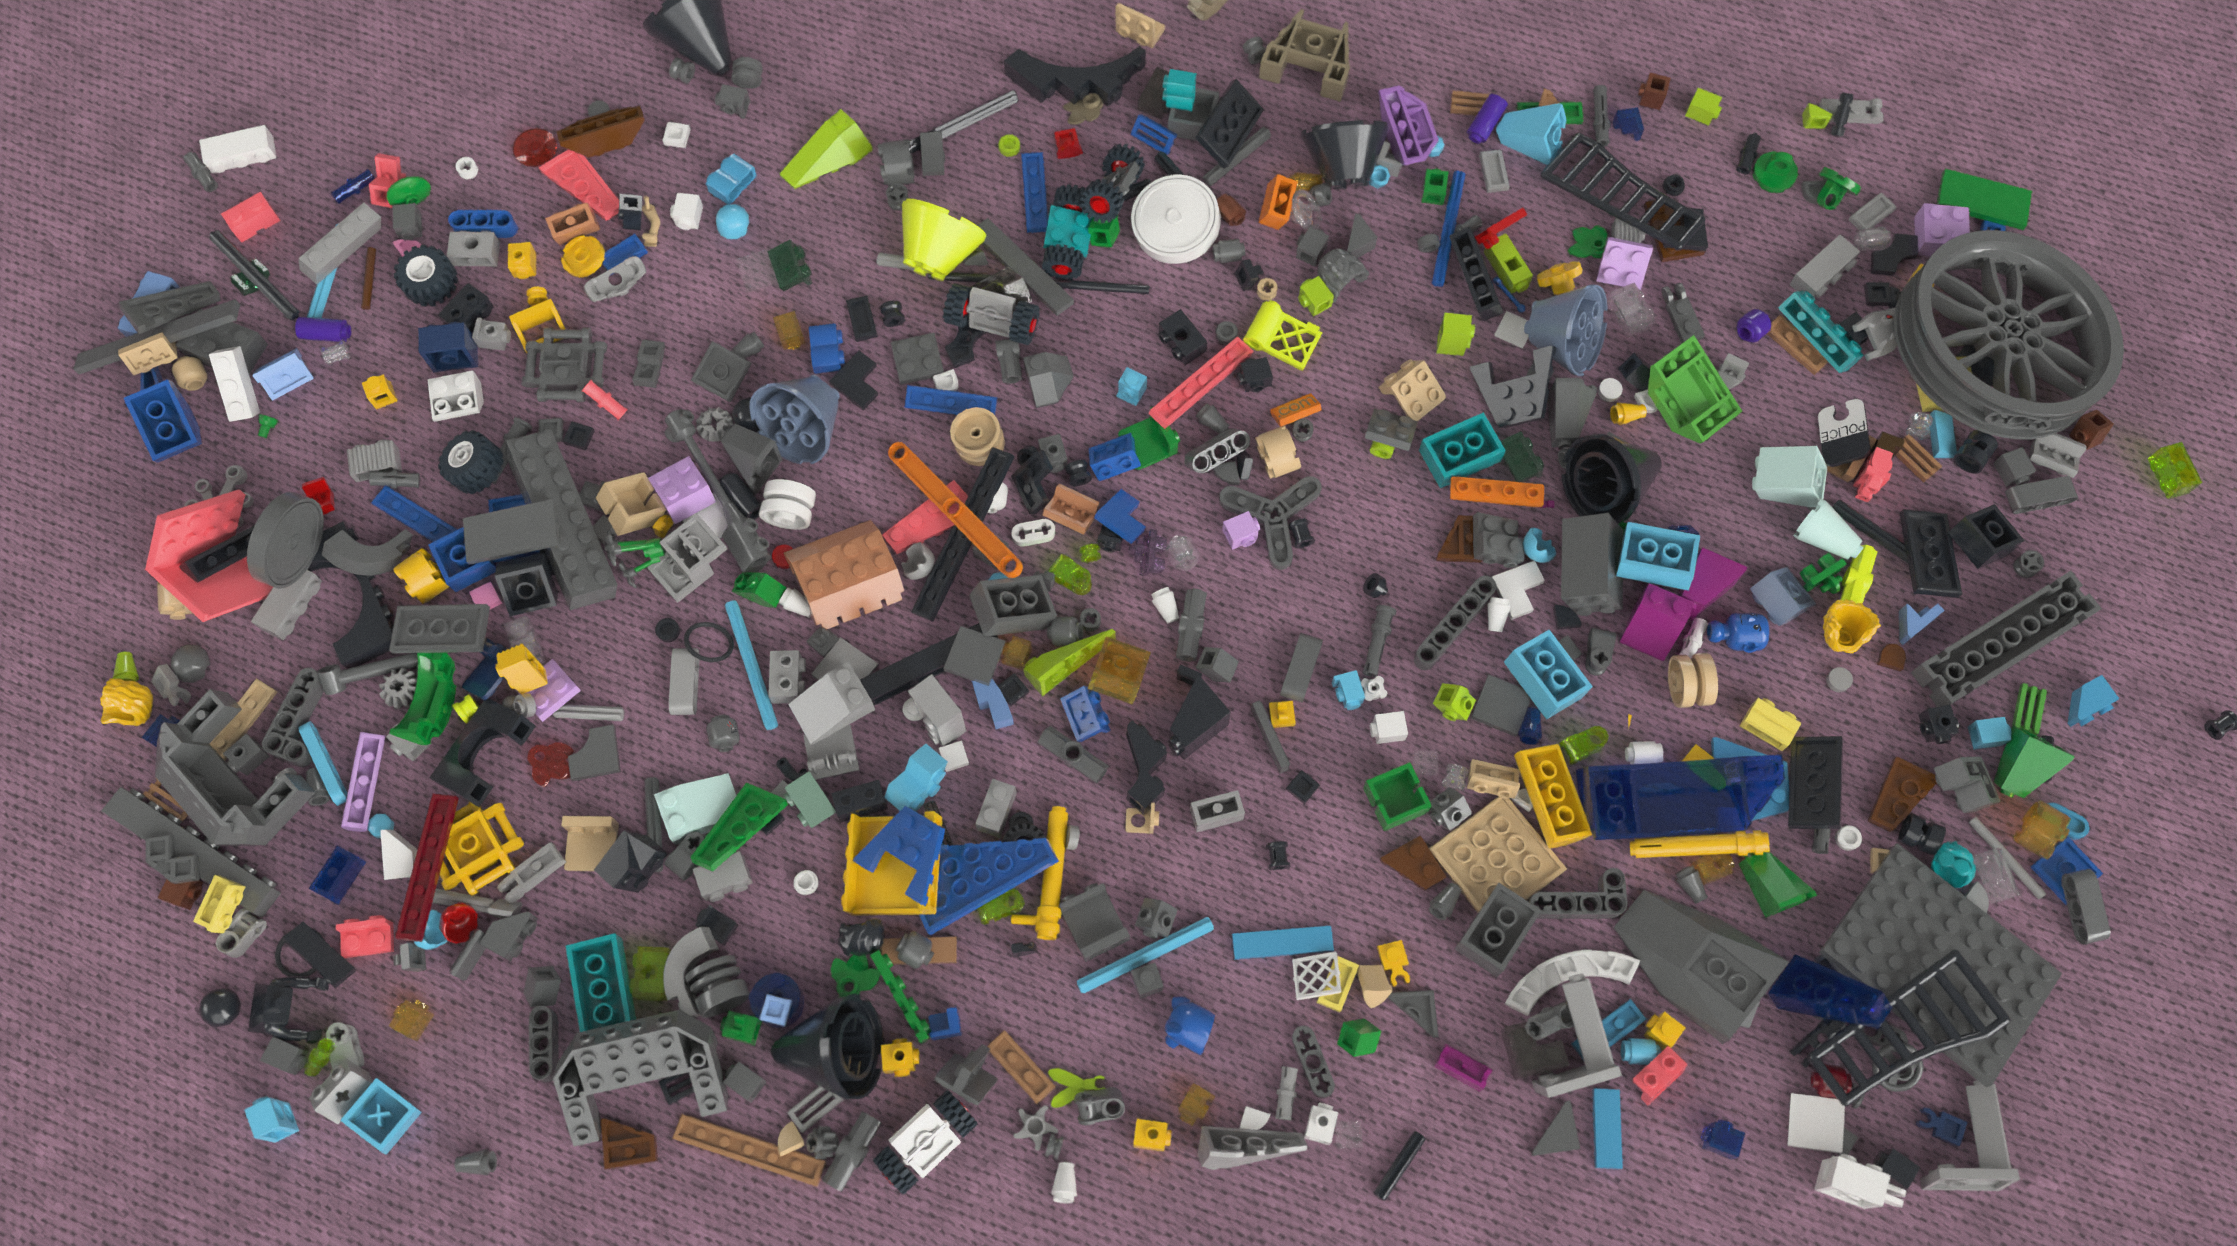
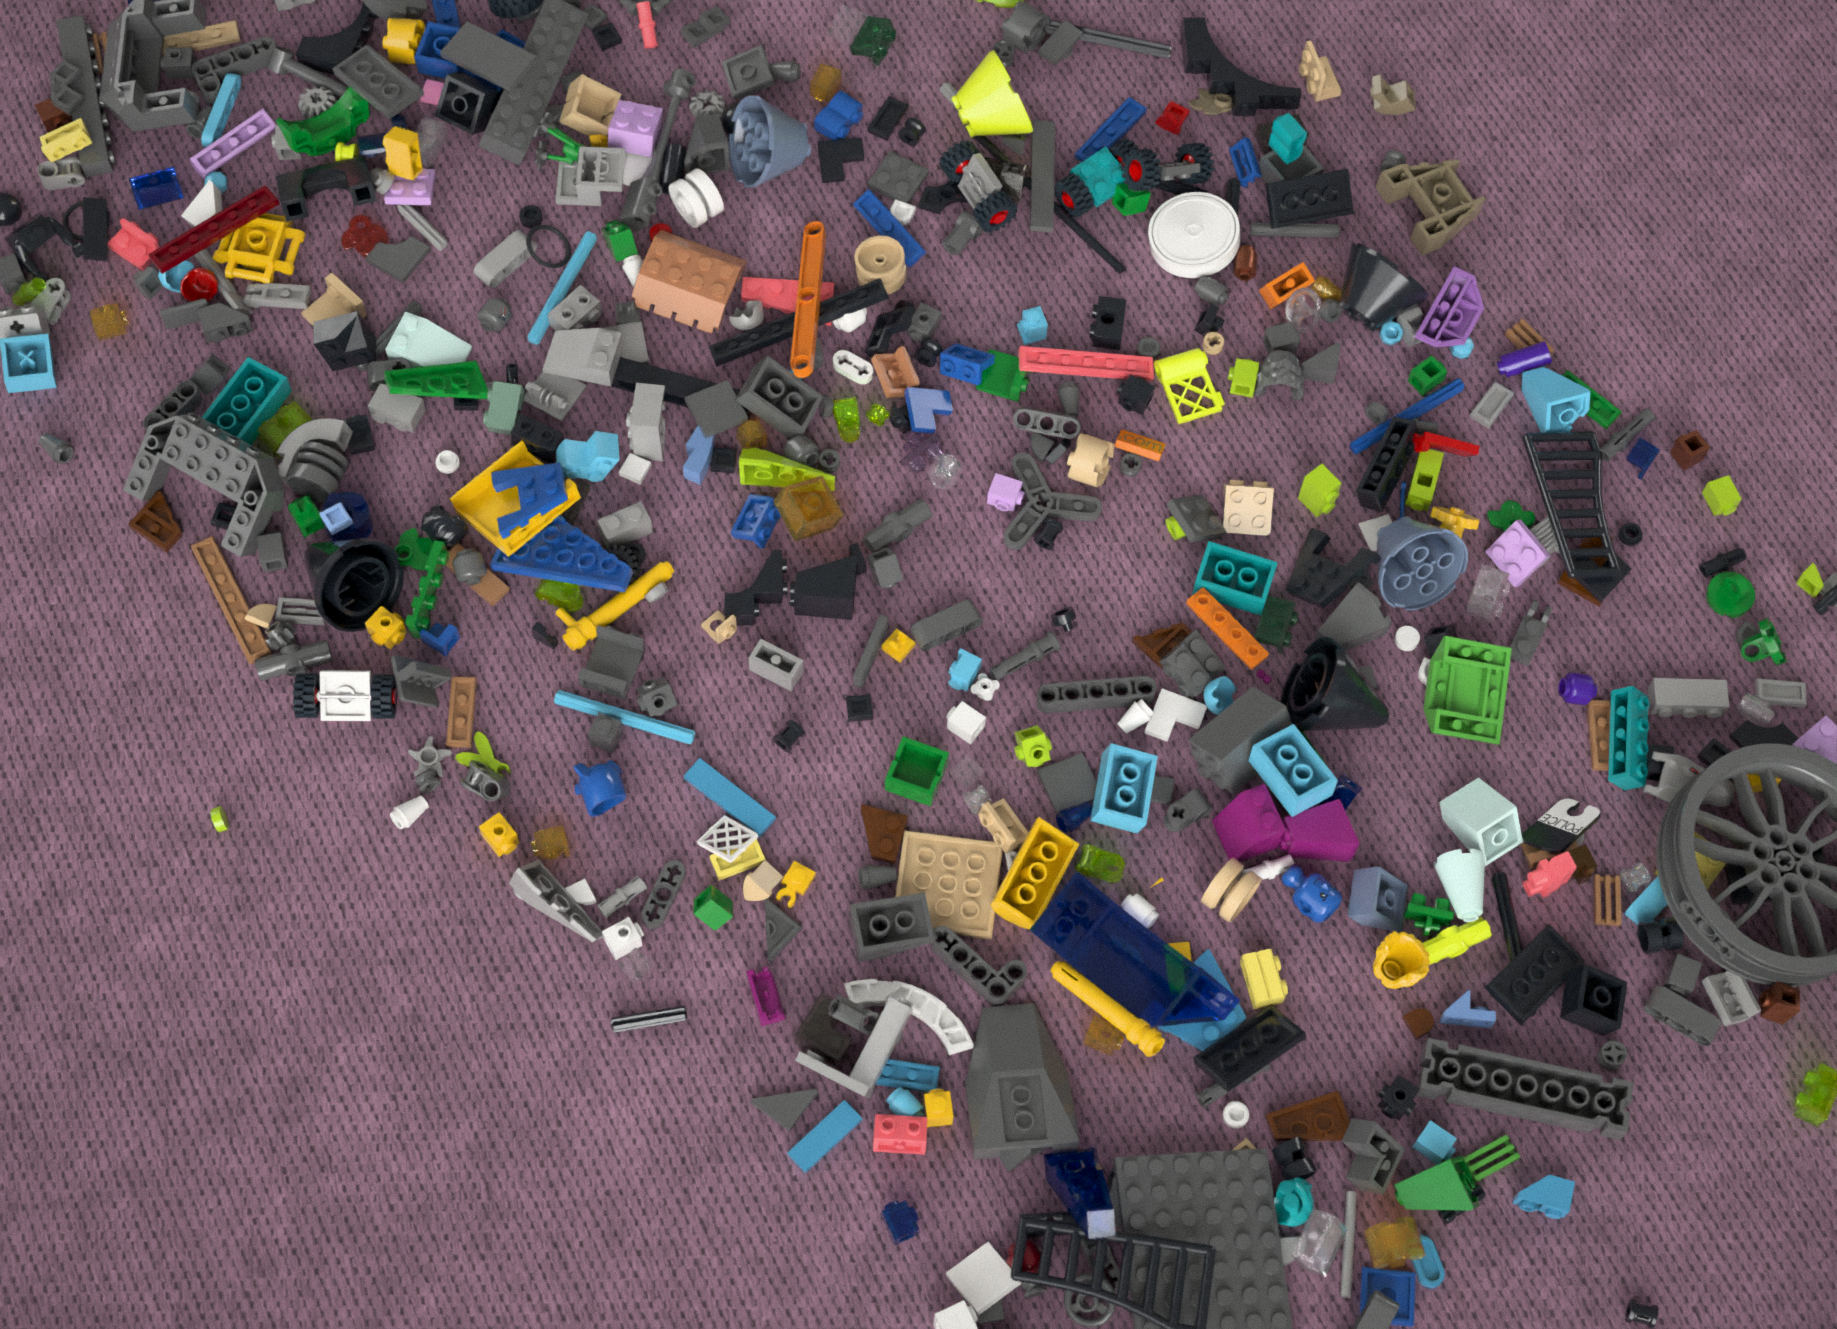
camera: 40 degrees right, 5 degrees down
(1009, 145) = (1127, 84): lime tile -> none
(1047, 377) = (978, 268): dark grey slope -> none
(1061, 745) = (719, 550): dark grey piece -> none
(1166, 604) = (894, 496): white cone -> none
(1449, 809) = (946, 815): dark grey brick -> none
(1547, 98) = (1594, 386): medium nougat tile -> none
(1566, 618) = (1187, 767): black tile -> none
(1624, 412) = (1400, 664): yellow cone -> none
(1691, 882) = (1075, 1032): dark grey cone -> none
(1732, 370) = (1520, 707): light grey tile -> none
(1774, 883) = (1137, 1090): green slope -> none
(1839, 679) = (1357, 1000): light grey tile -> none

